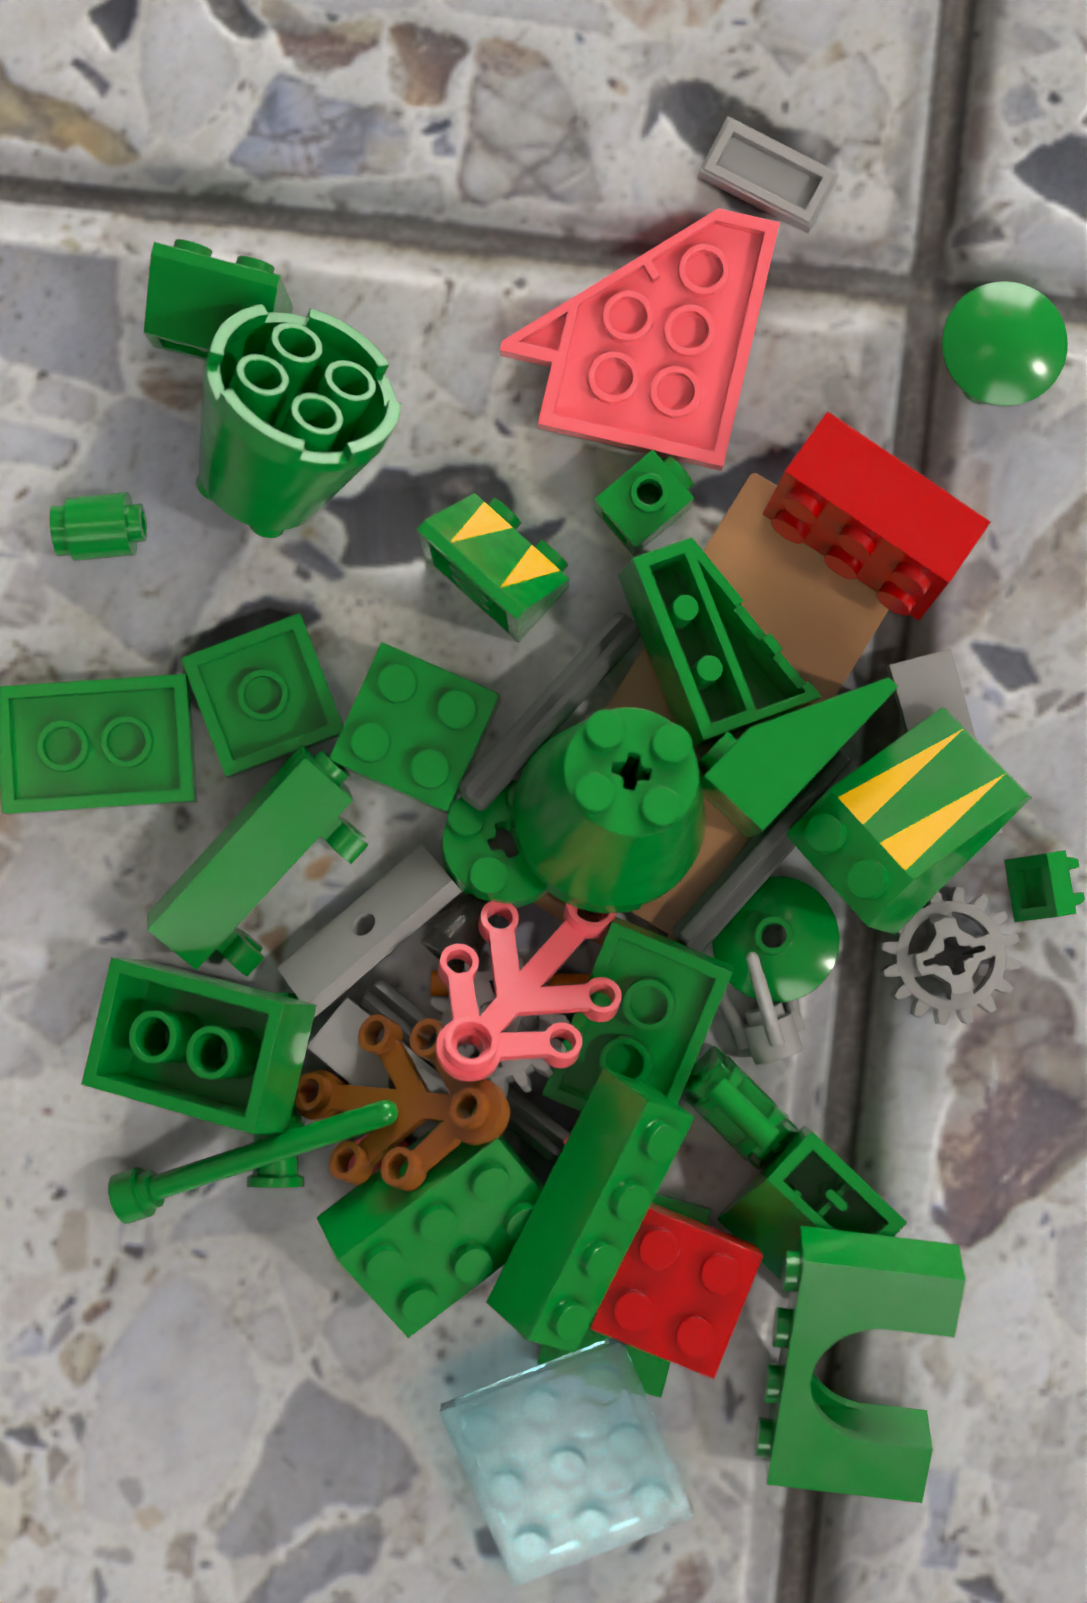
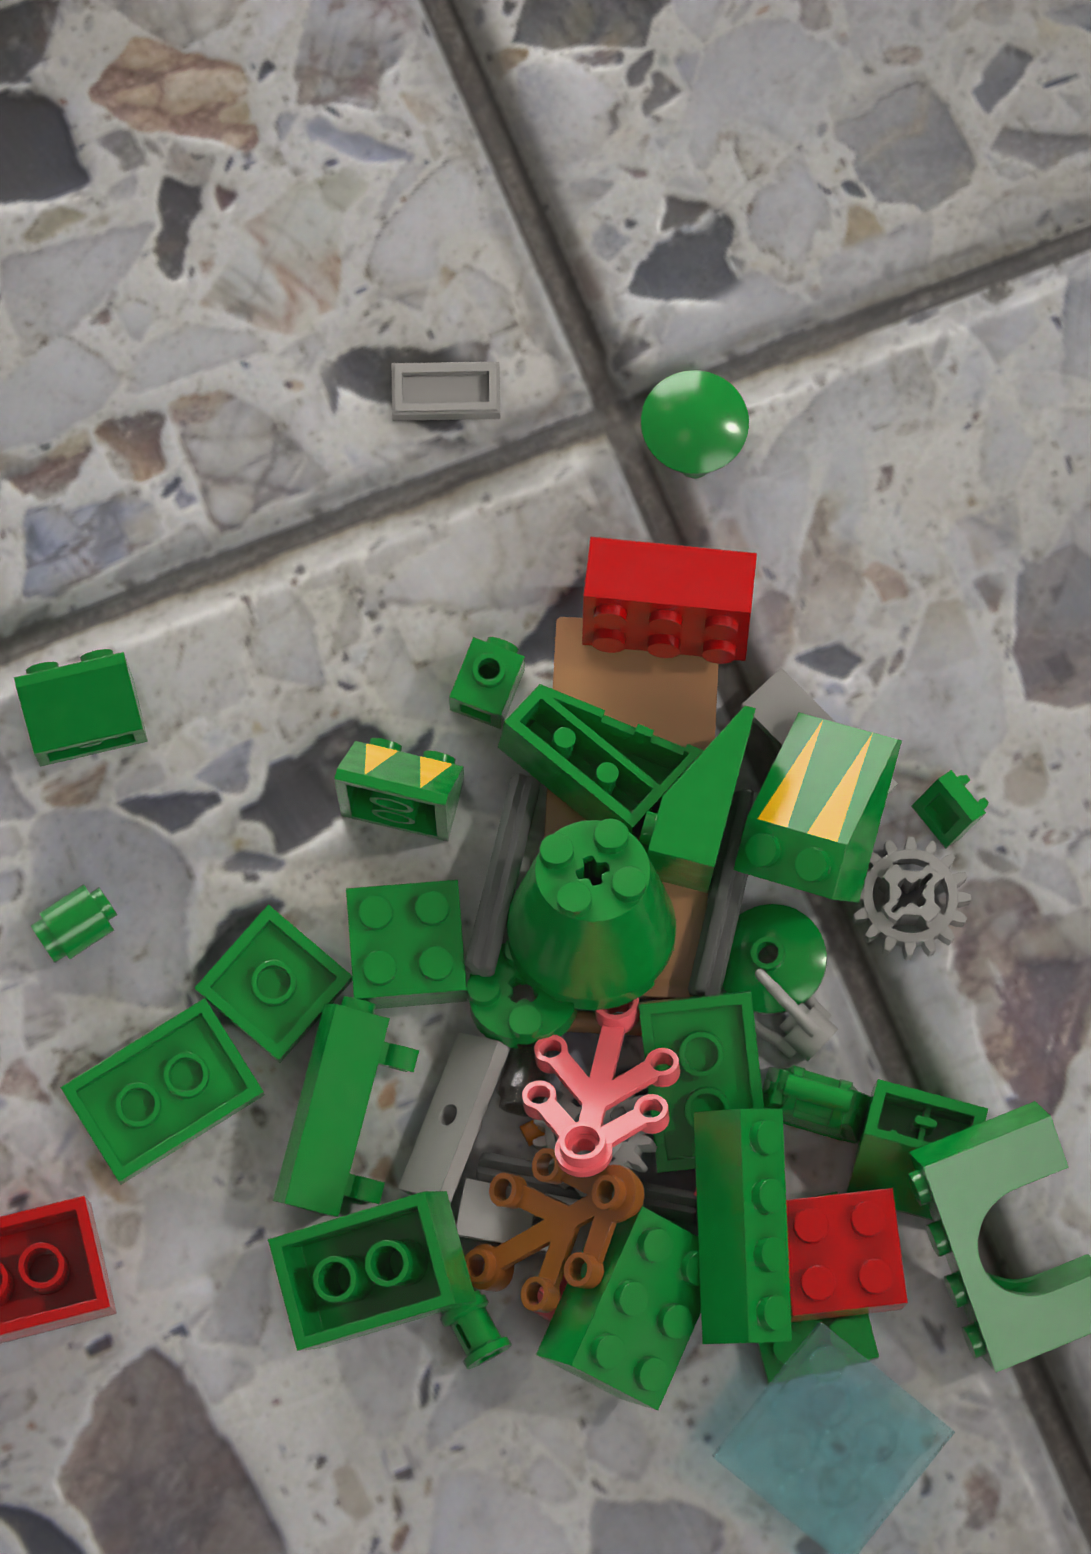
camera: 30 degrees left, 10 degrees down
(138, 1192) = (386, 1419): green piece -> none
(289, 415) = (186, 755): green cone -> none
(657, 344) = (432, 559): coral wing -> none

